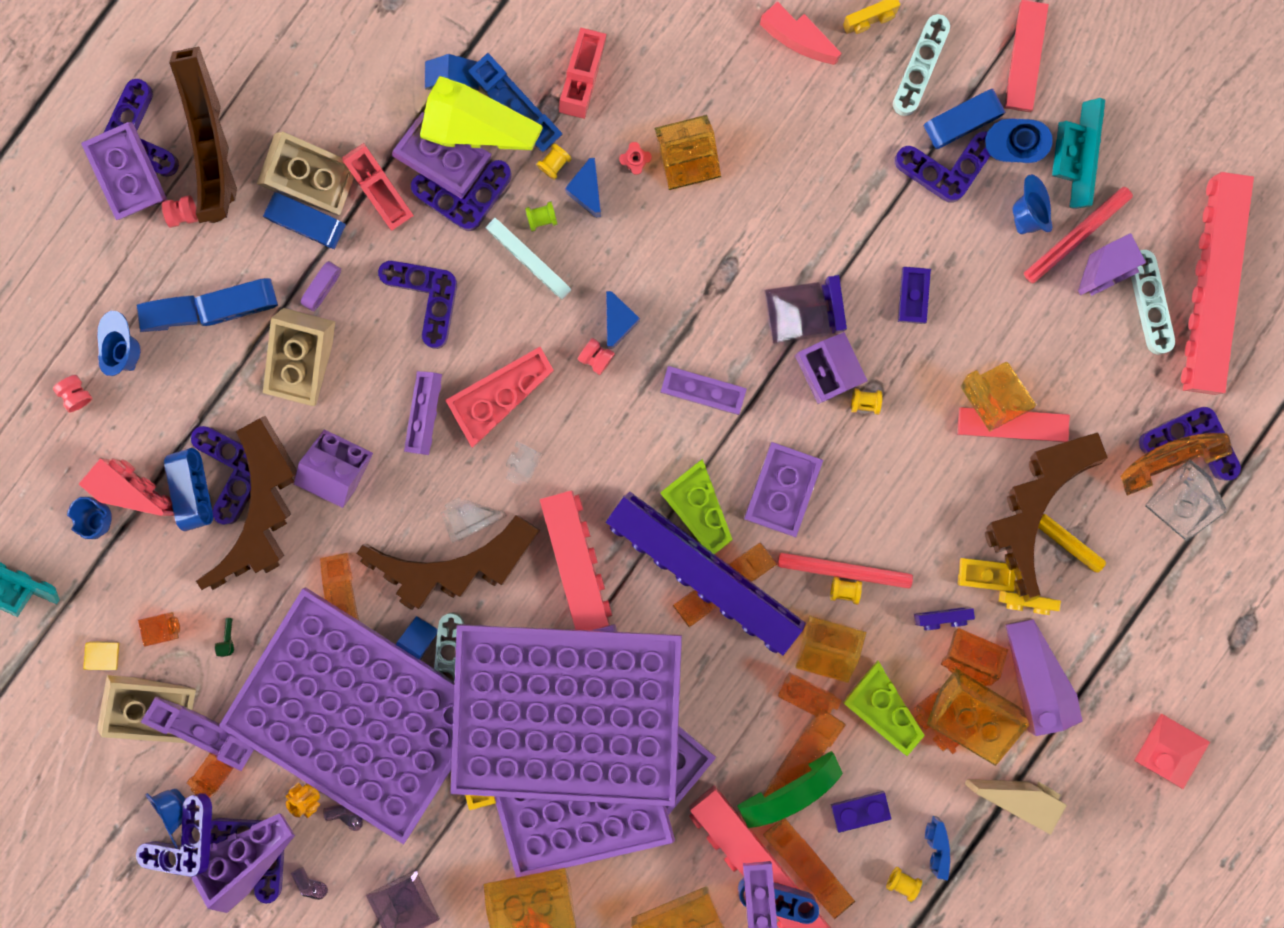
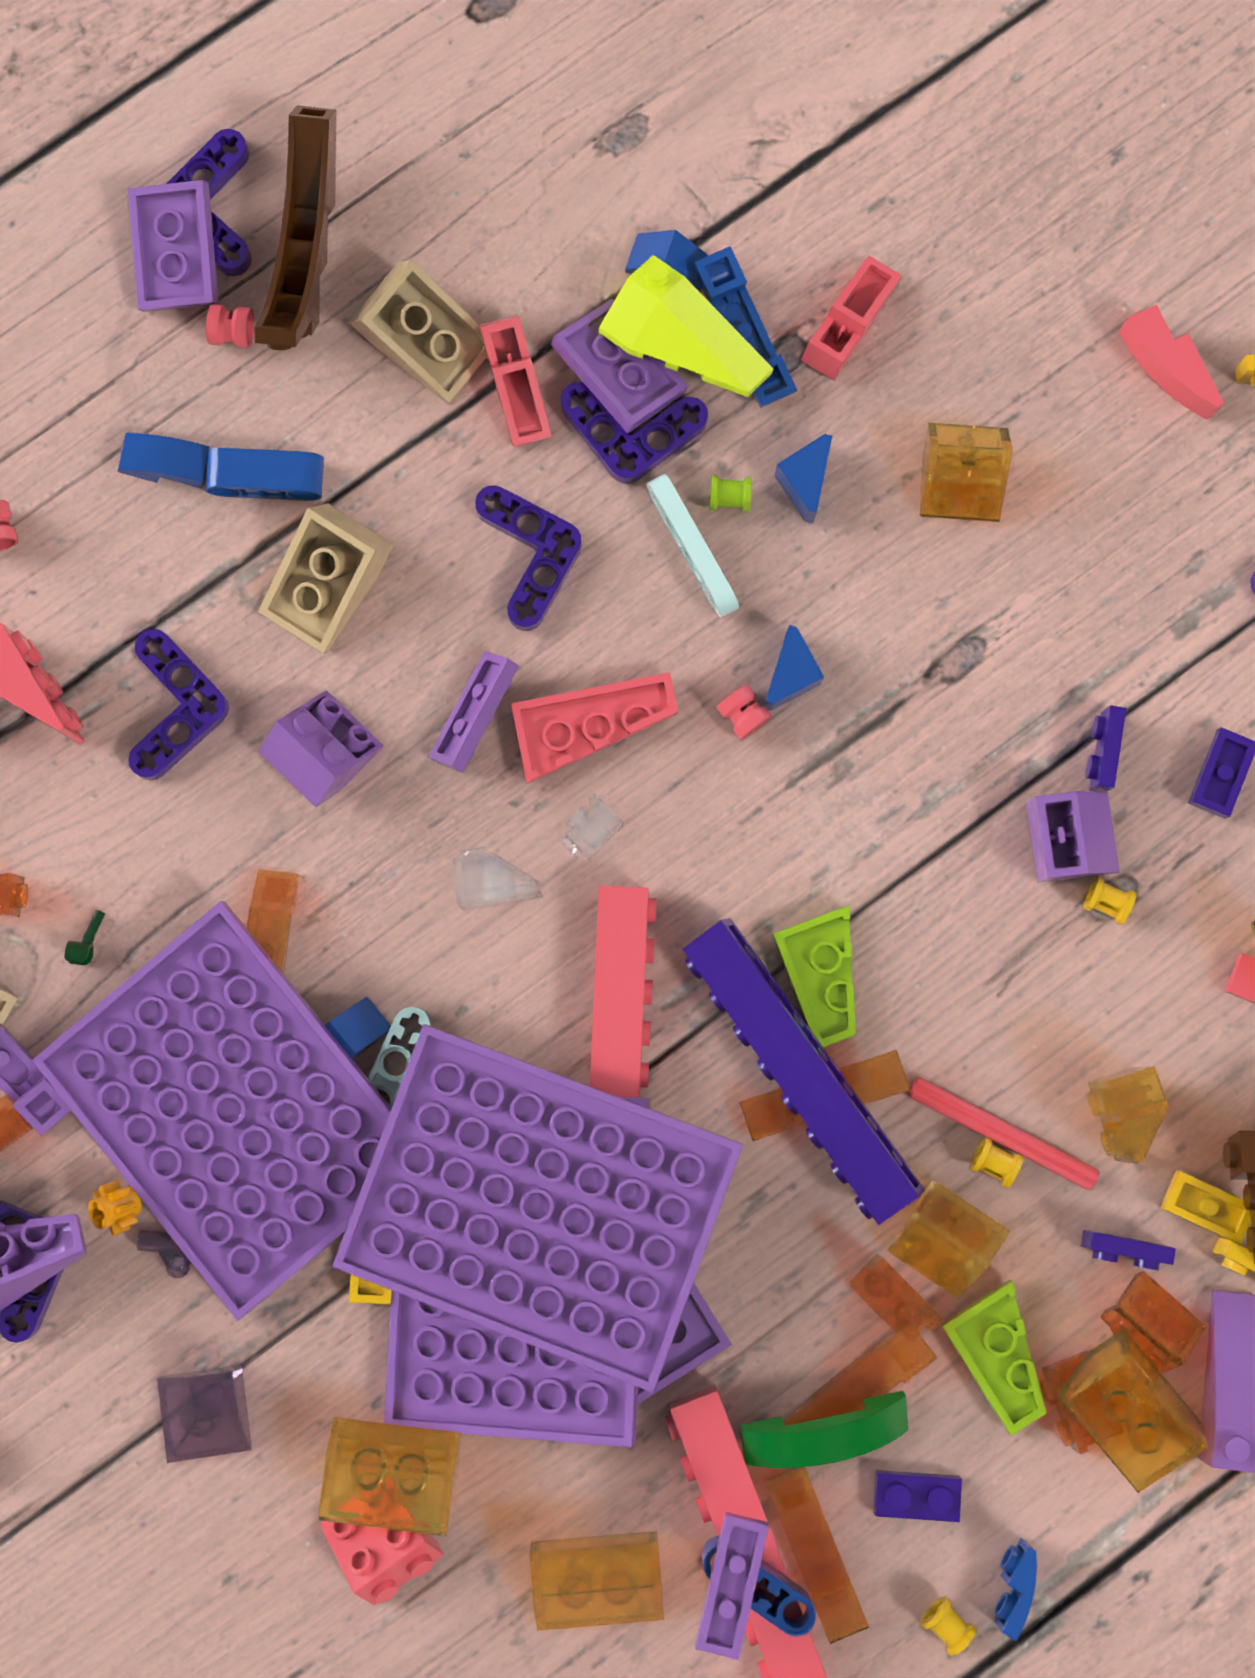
camera: 15 degrees right, 5 degrees down
(115, 344) = (77, 479): blue piece -> none
(188, 489) = (107, 711): blue beam -> none
(268, 468) = (230, 717): reddish brown arch -> none
(304, 220) = (398, 393): blue beam -> none
(308, 887) = (78, 1338): clear purple arm -> none
(320, 286) = (390, 490): medium lavender beam -> none
(420, 579) = (445, 955): reddish brown arch -> none
(554, 161) = (772, 424): yellow bush -> none
(627, 158) = (886, 468): coral plate -> none
(703, 390) = (881, 809): medium lavender plate -> none
(783, 489) = (951, 987): medium lavender plate -> none
(797, 312) = (1048, 744): clear purple slope -> none
(919, 530) = (1130, 1110): none -> clear yellow slope
(1032, 803) = (1180, 1569): tan slope -> none

